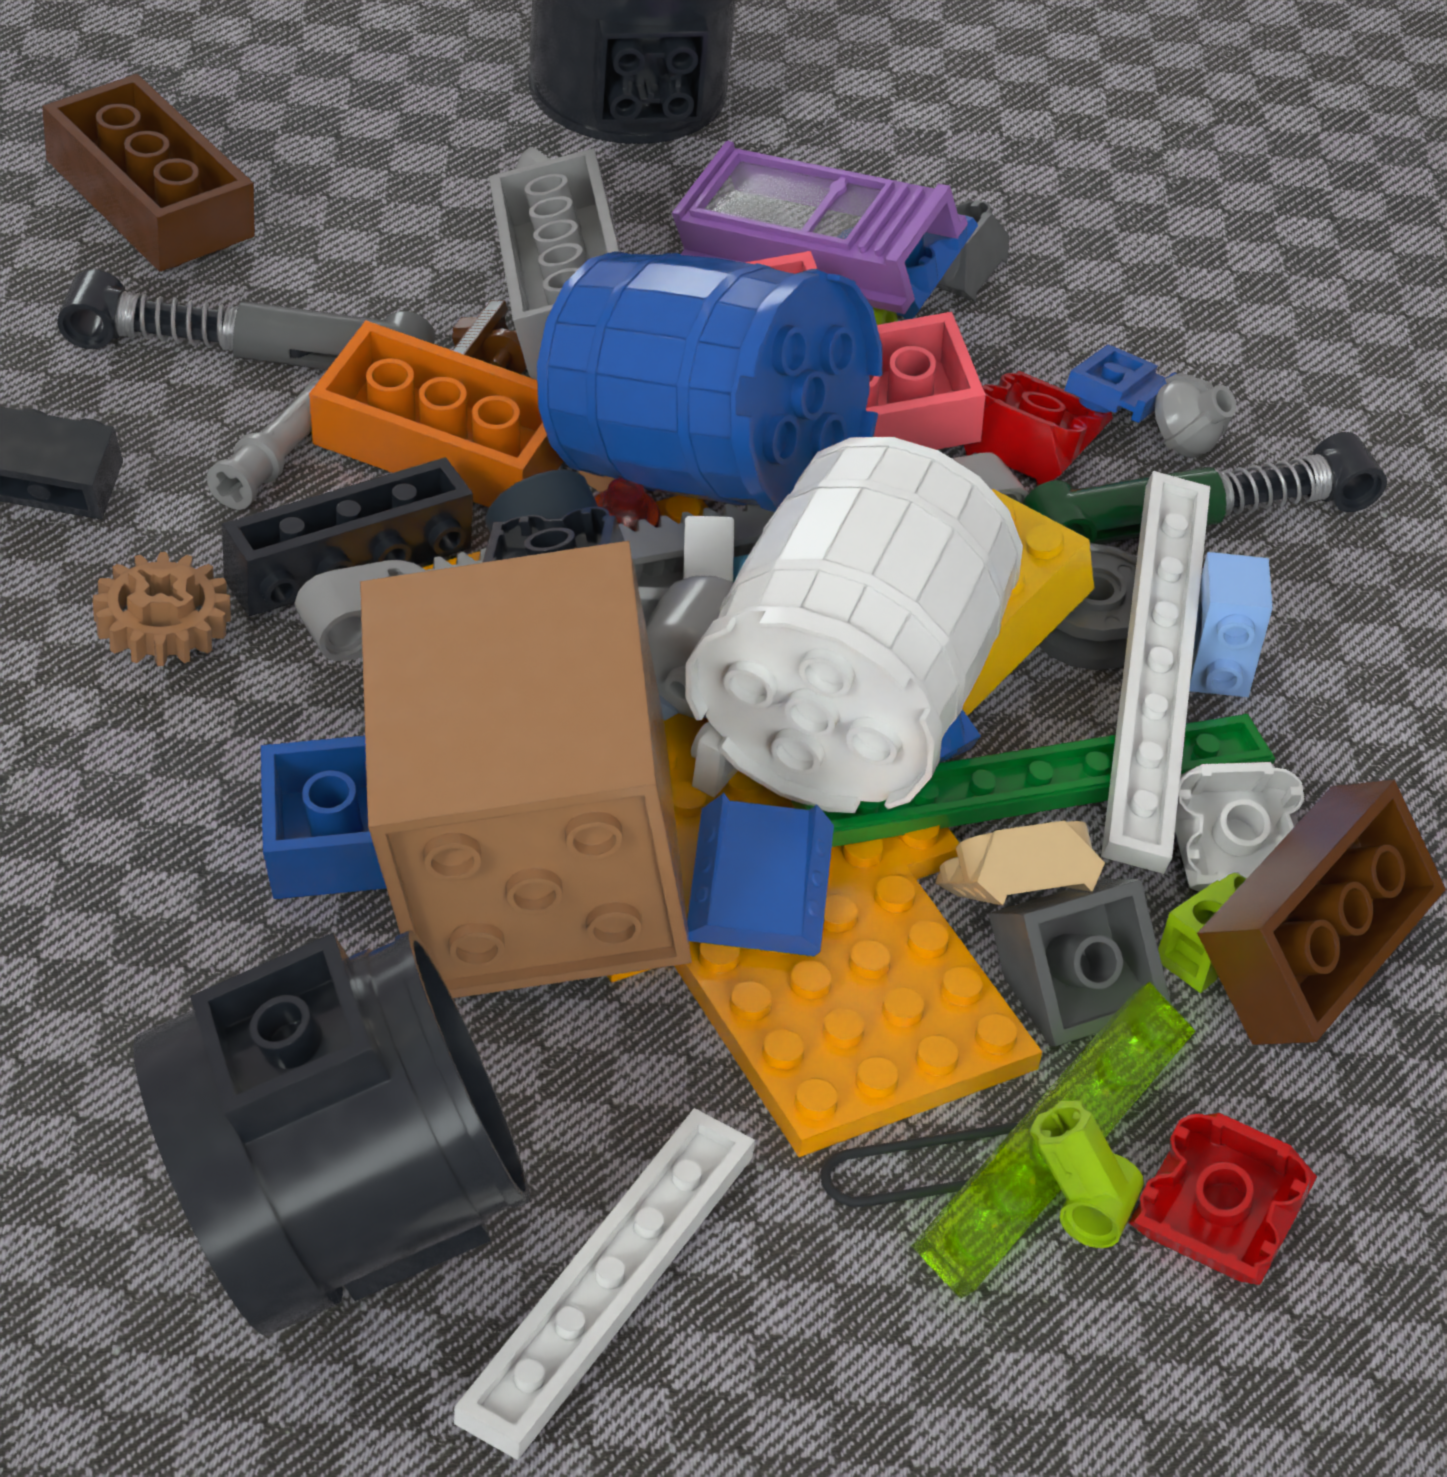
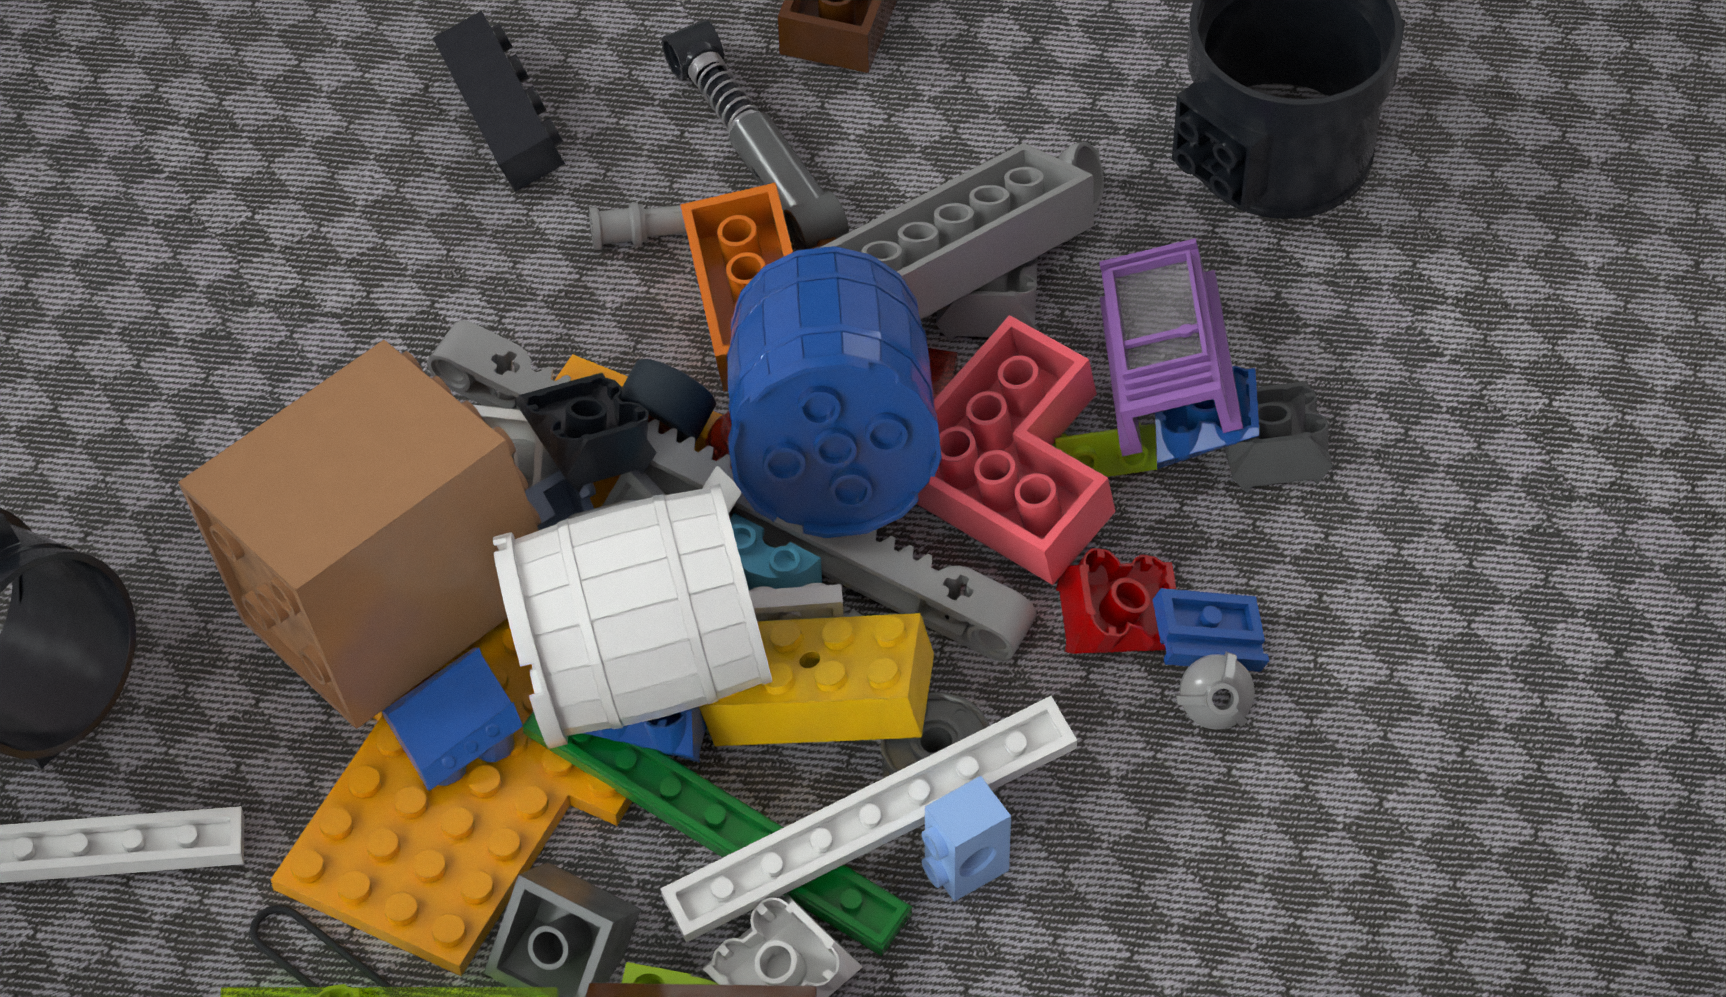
camera: 60 degrees right, 10 degrees up
(161, 608) = (445, 273): medium nougat gear -> none
(386, 518) = (584, 312): black brick -> none
(1022, 862) = (586, 854): tan slope -> none
(1112, 512) = (1250, 821): piece -> none

